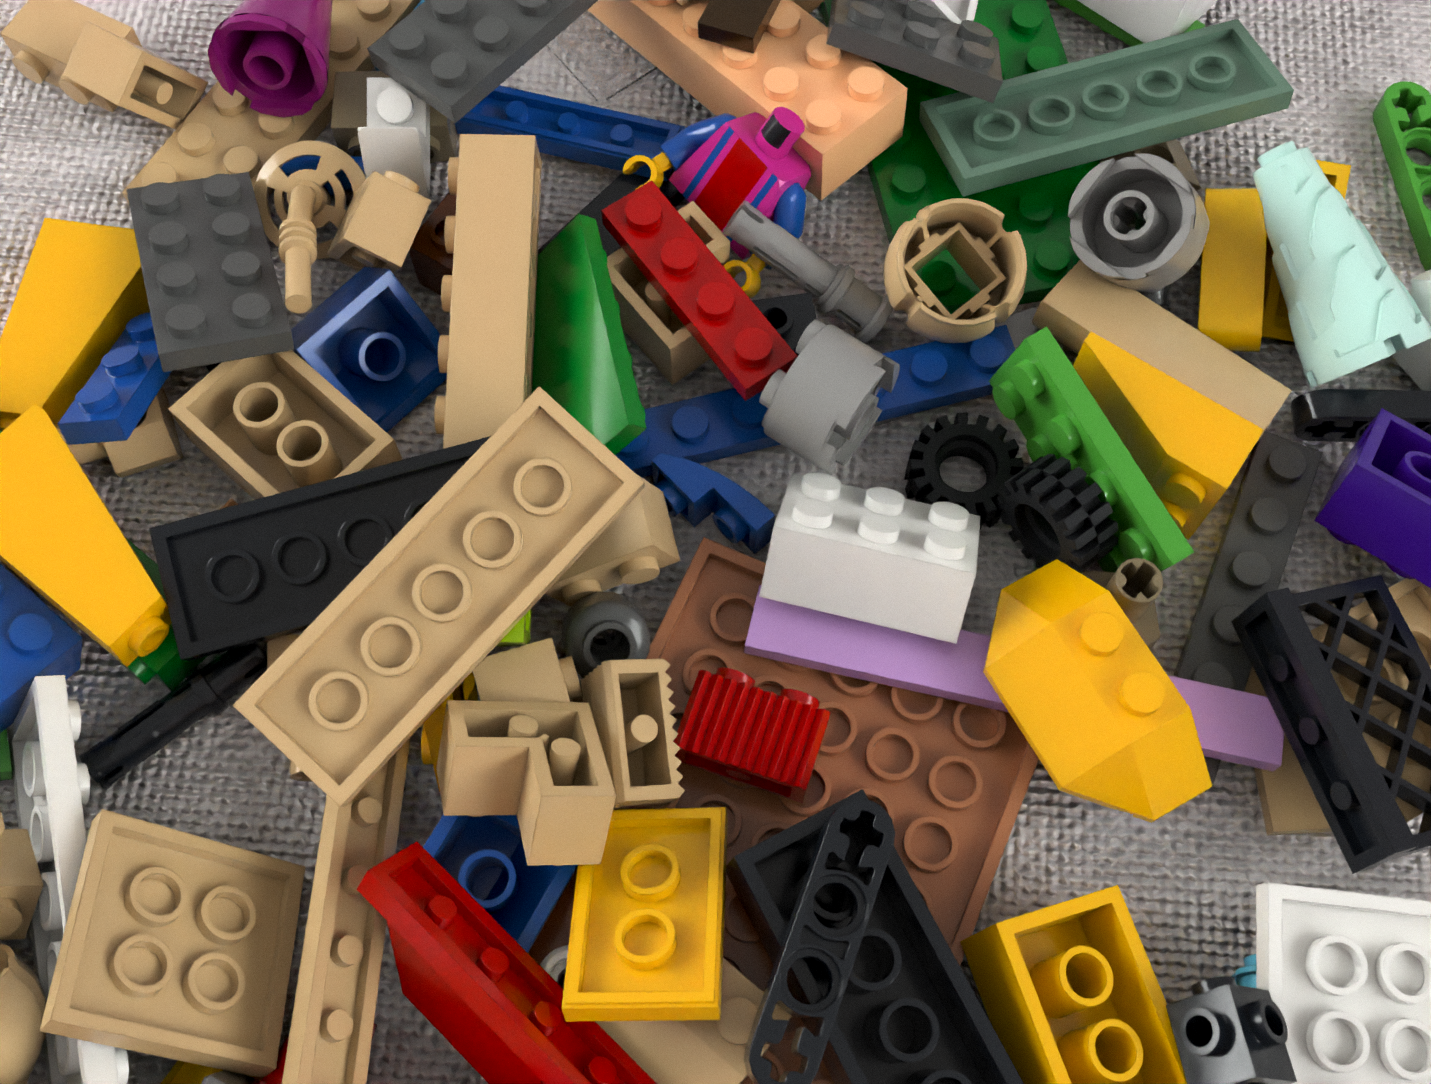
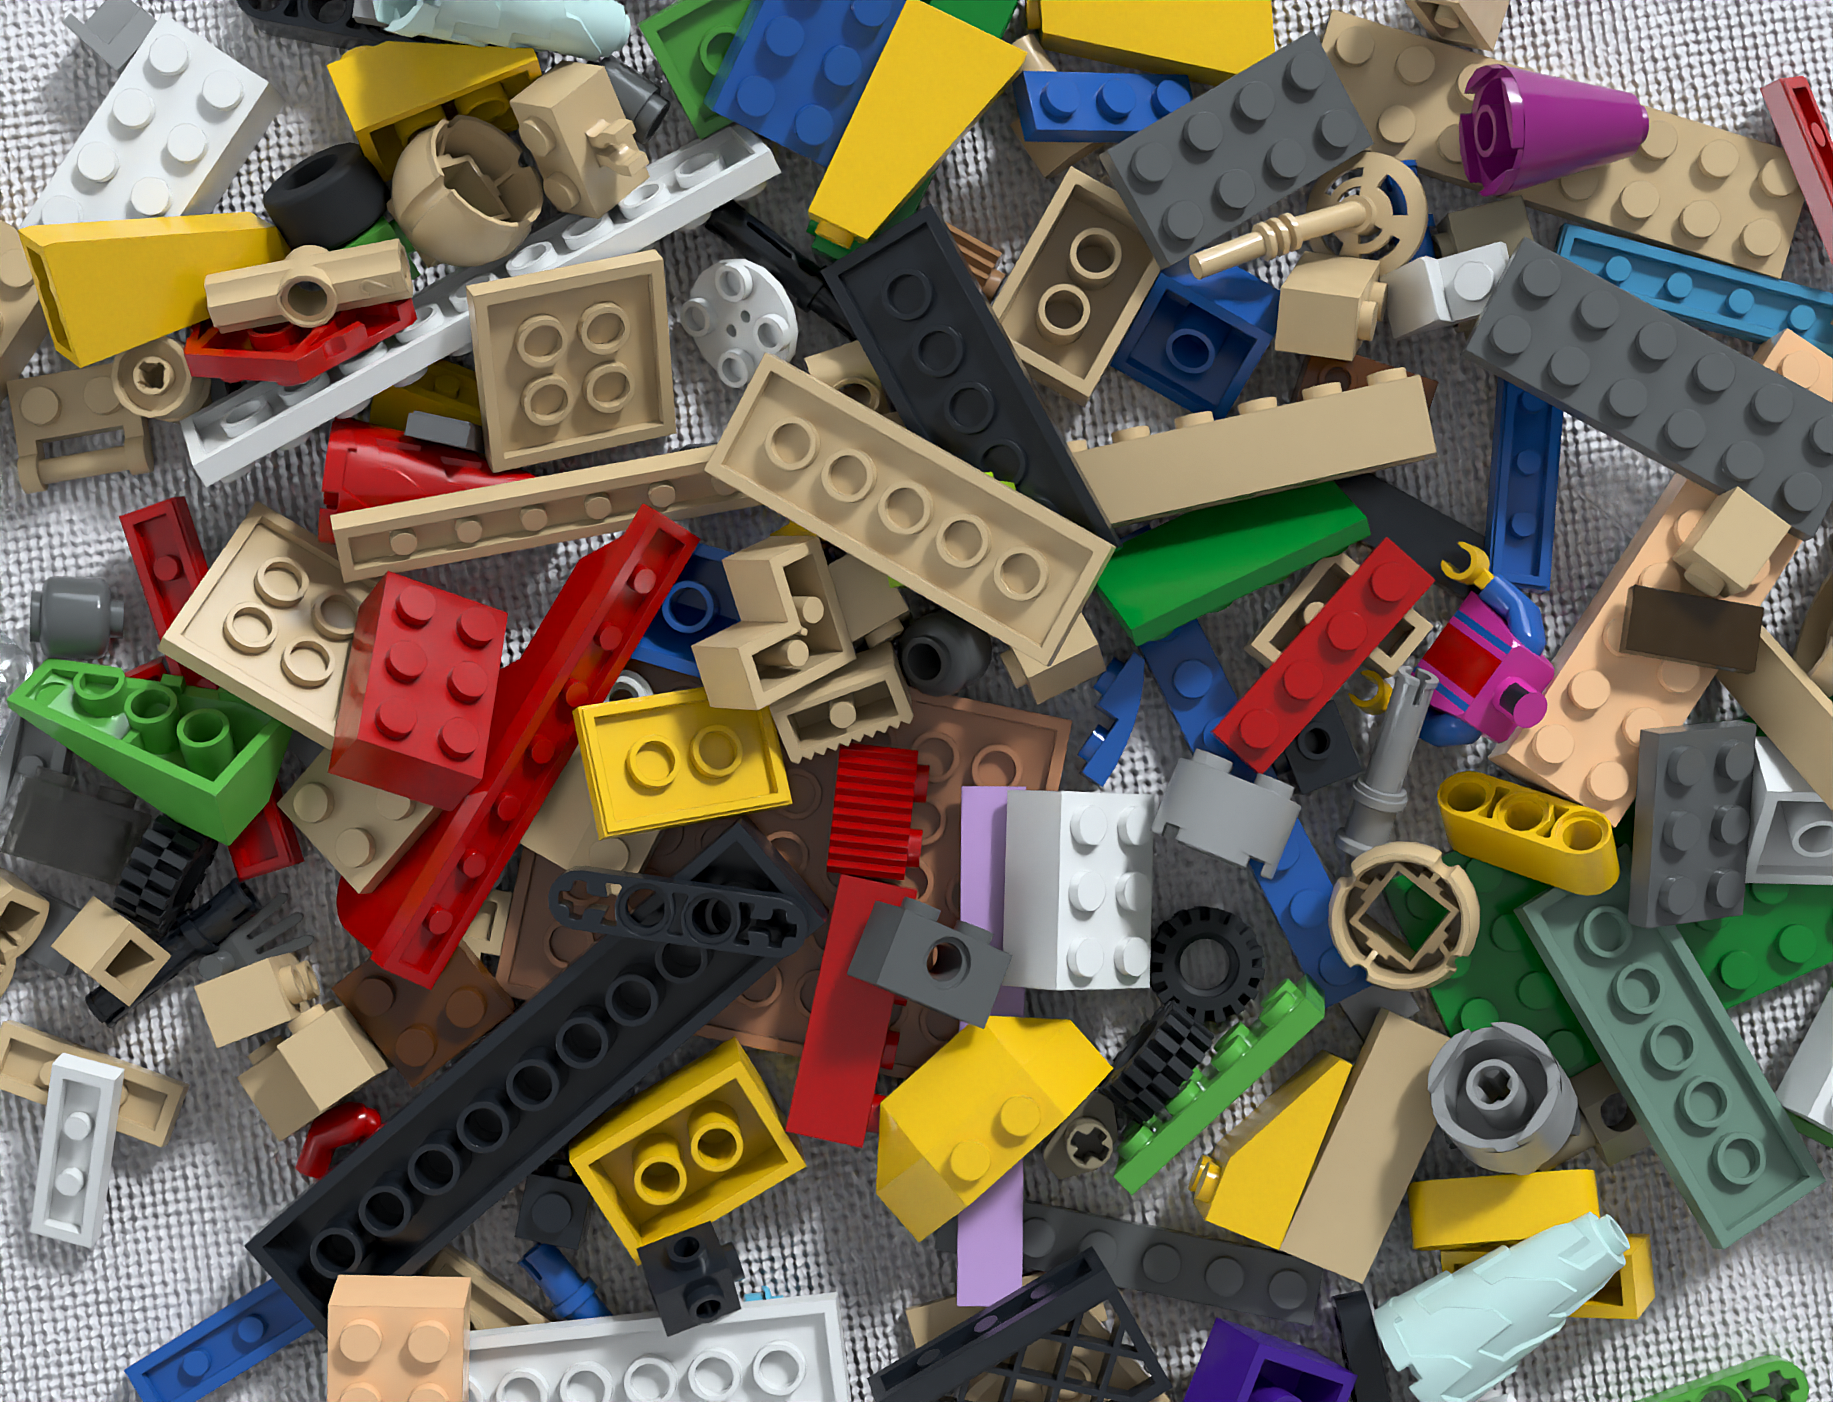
camera: 80 degrees right, 20 degrees up
(180, 780) = (722, 301): none -> white plate
(896, 167) = (1529, 832): none -> yellow beam
(922, 696) = (896, 954): none -> dark grey brick
(959, 802) = (846, 1027): none -> red brick

